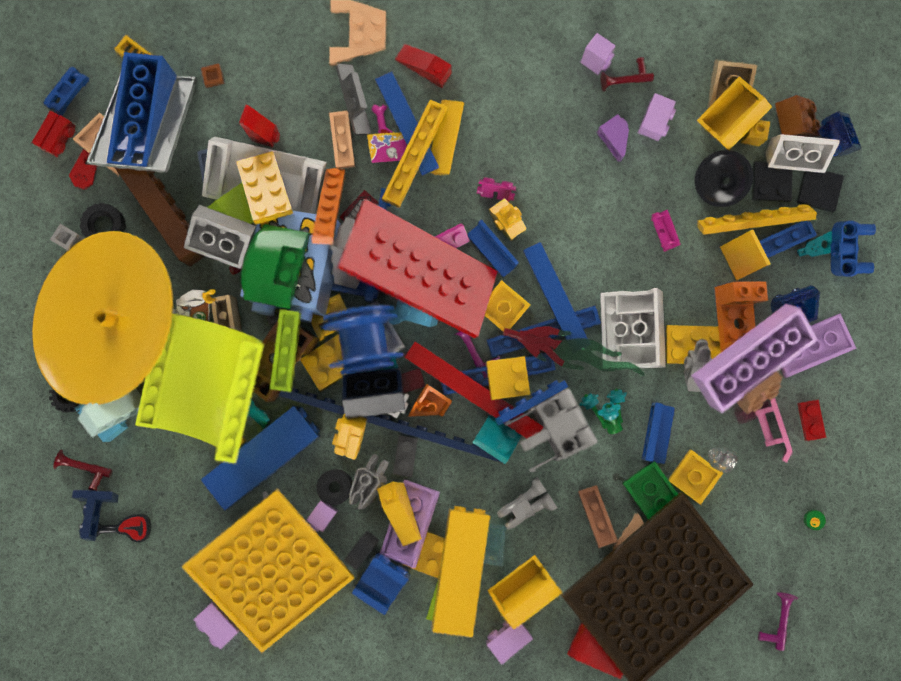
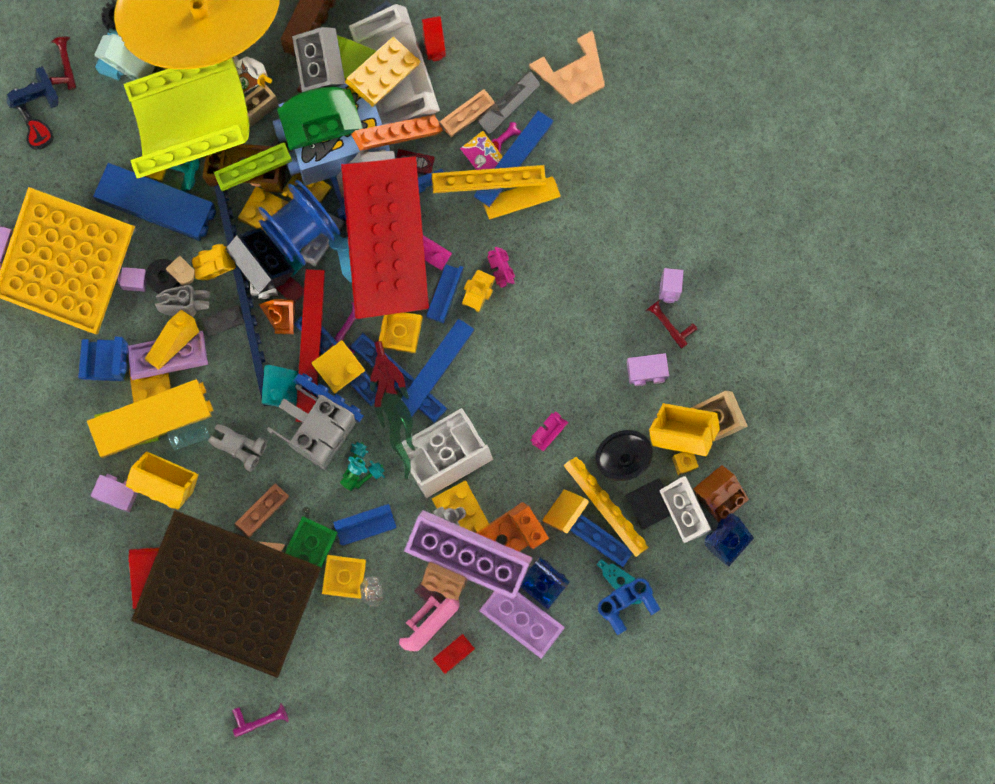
camera: 55 degrees right, 5 degrees down
(341, 468) = (181, 271): none -> tan plate
(361, 550) = (122, 326): black tyre -> none
(425, 64) = (576, 144): red slope -> none
(615, 136) = (609, 342): medium lavender slope -> none
(814, 520) = (365, 703): green tile -> none
(820, 190) = (668, 550): black tile -> none

